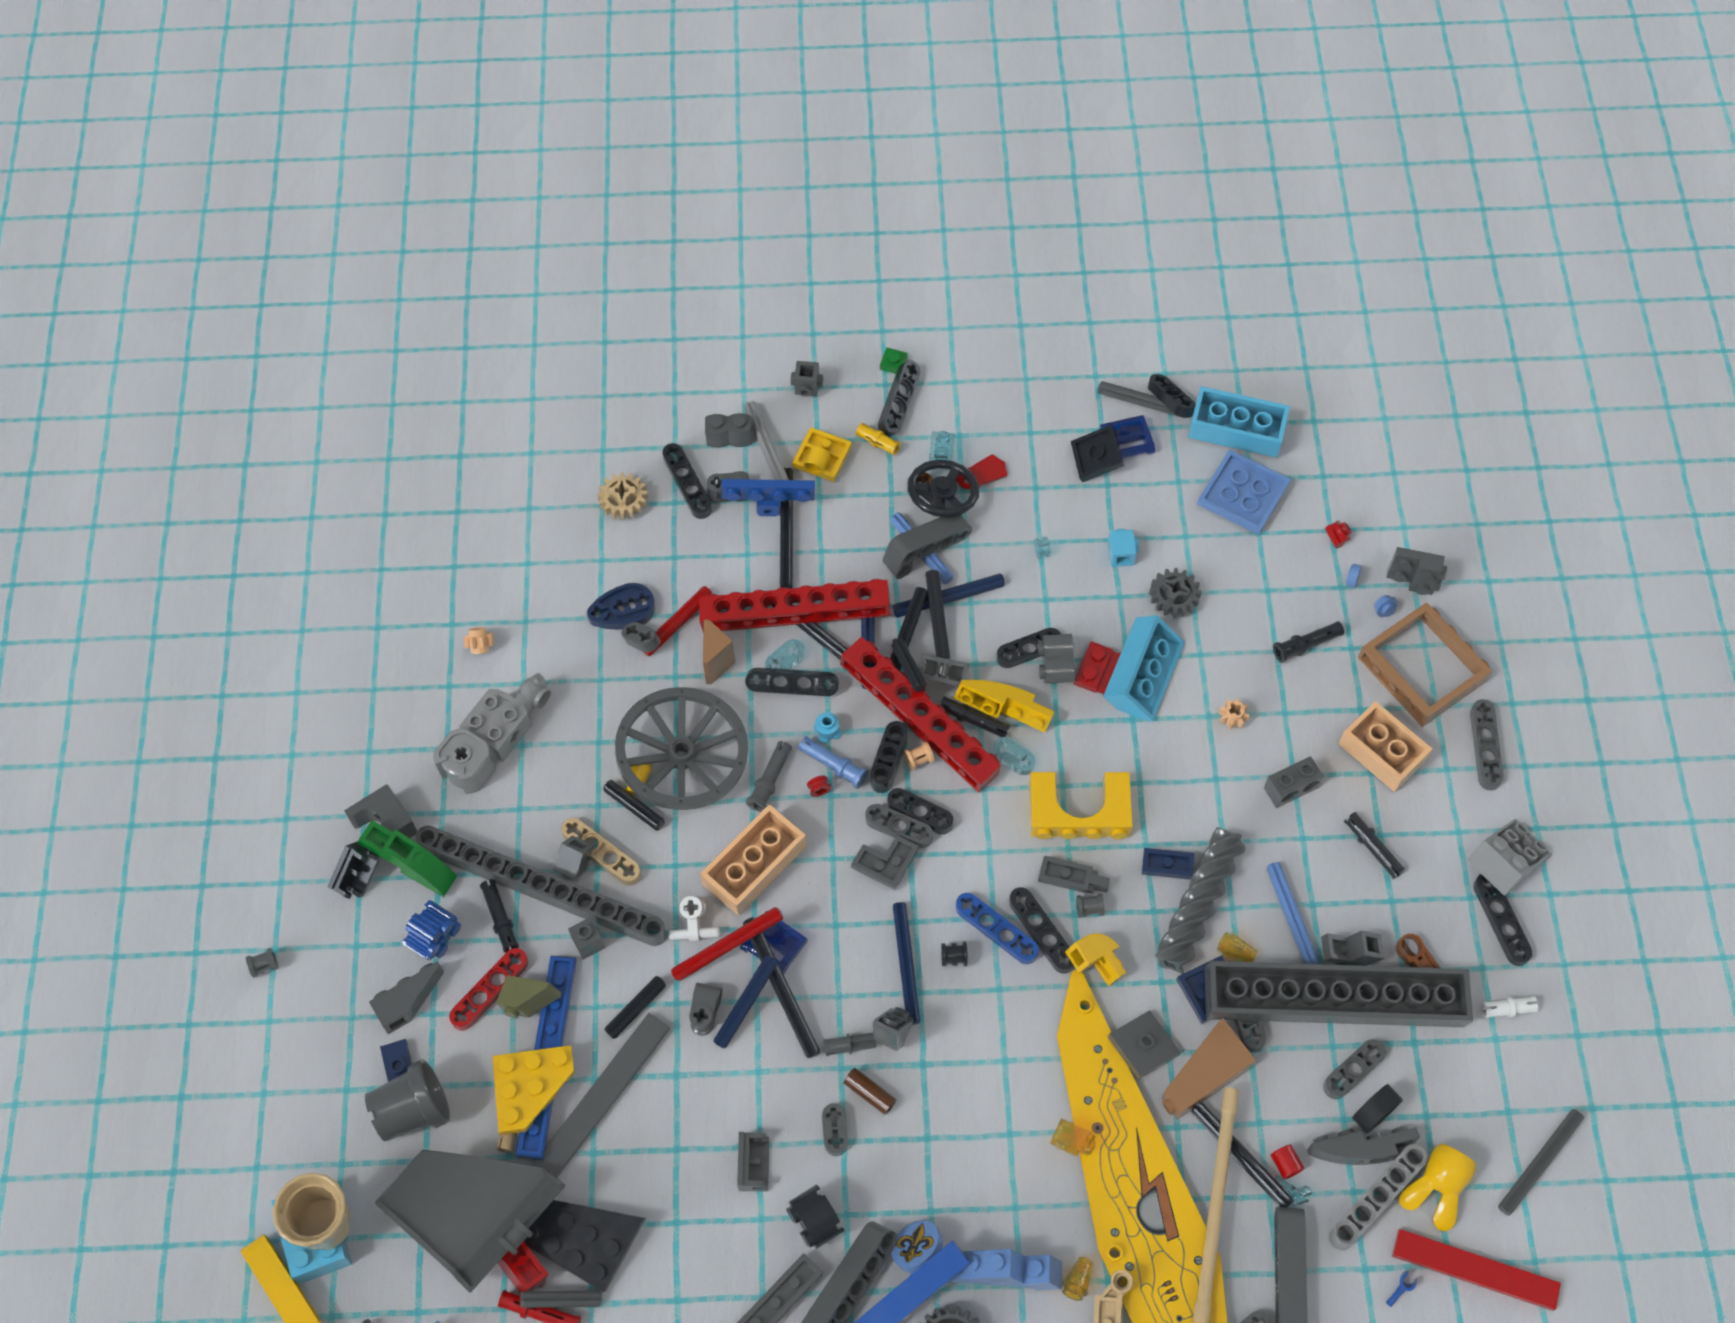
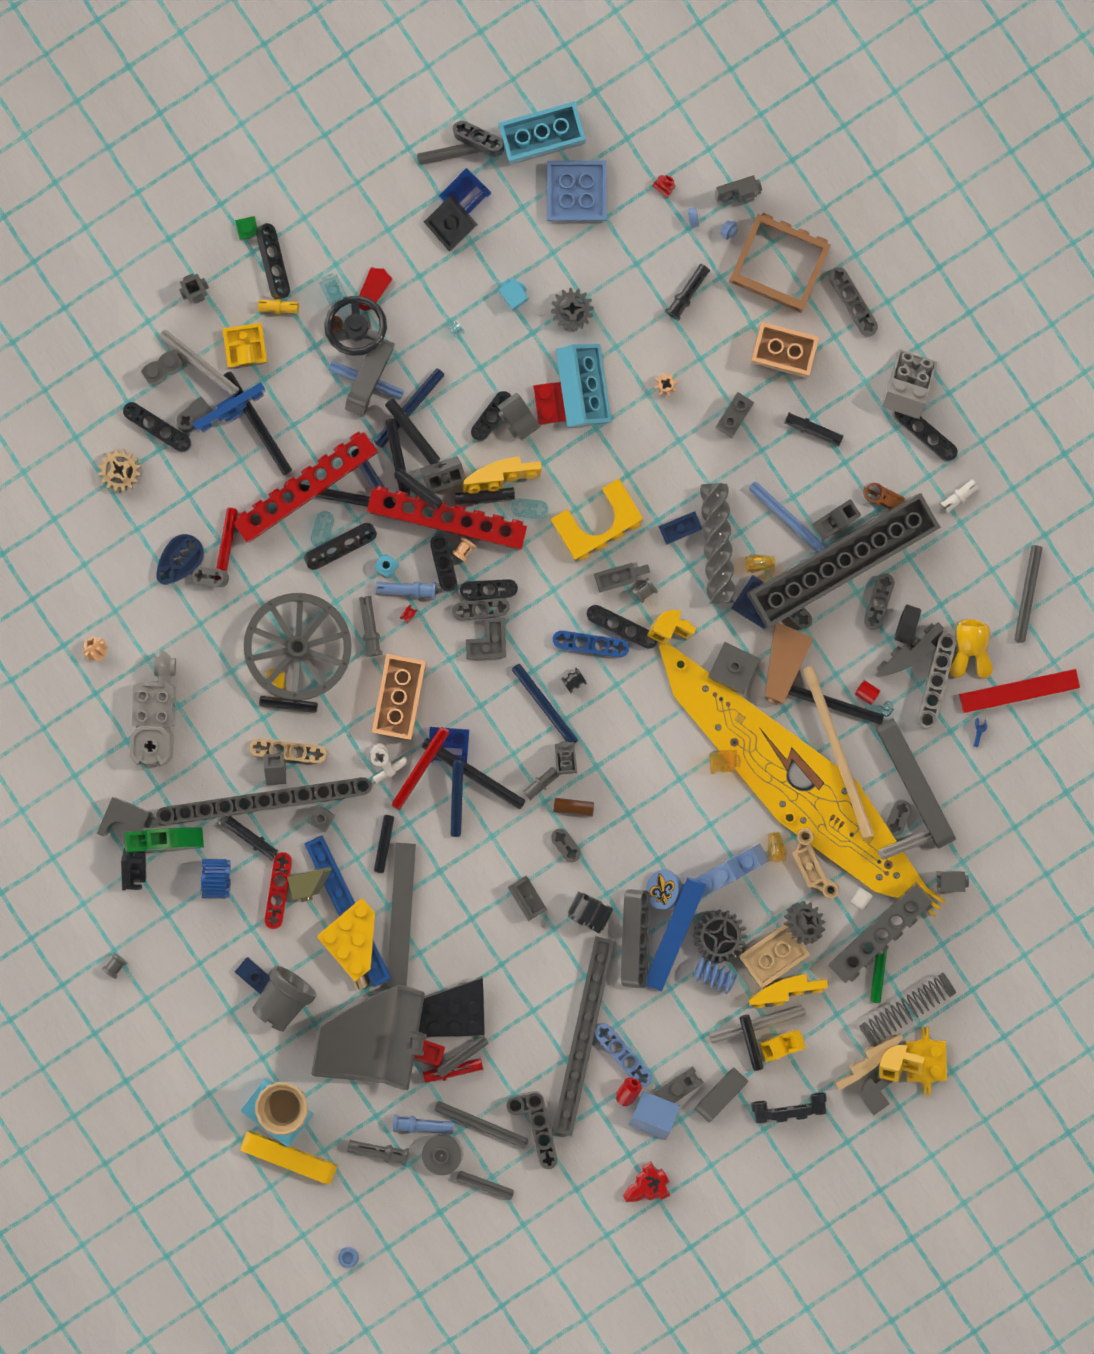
camera: 30 degrees left, 25 degrees up
(404, 1000) = (228, 935): dark grey slope -> none
(705, 1004) = (430, 813): dark grey piece -> none
(717, 652) = (273, 558): medium nougat slope -> none

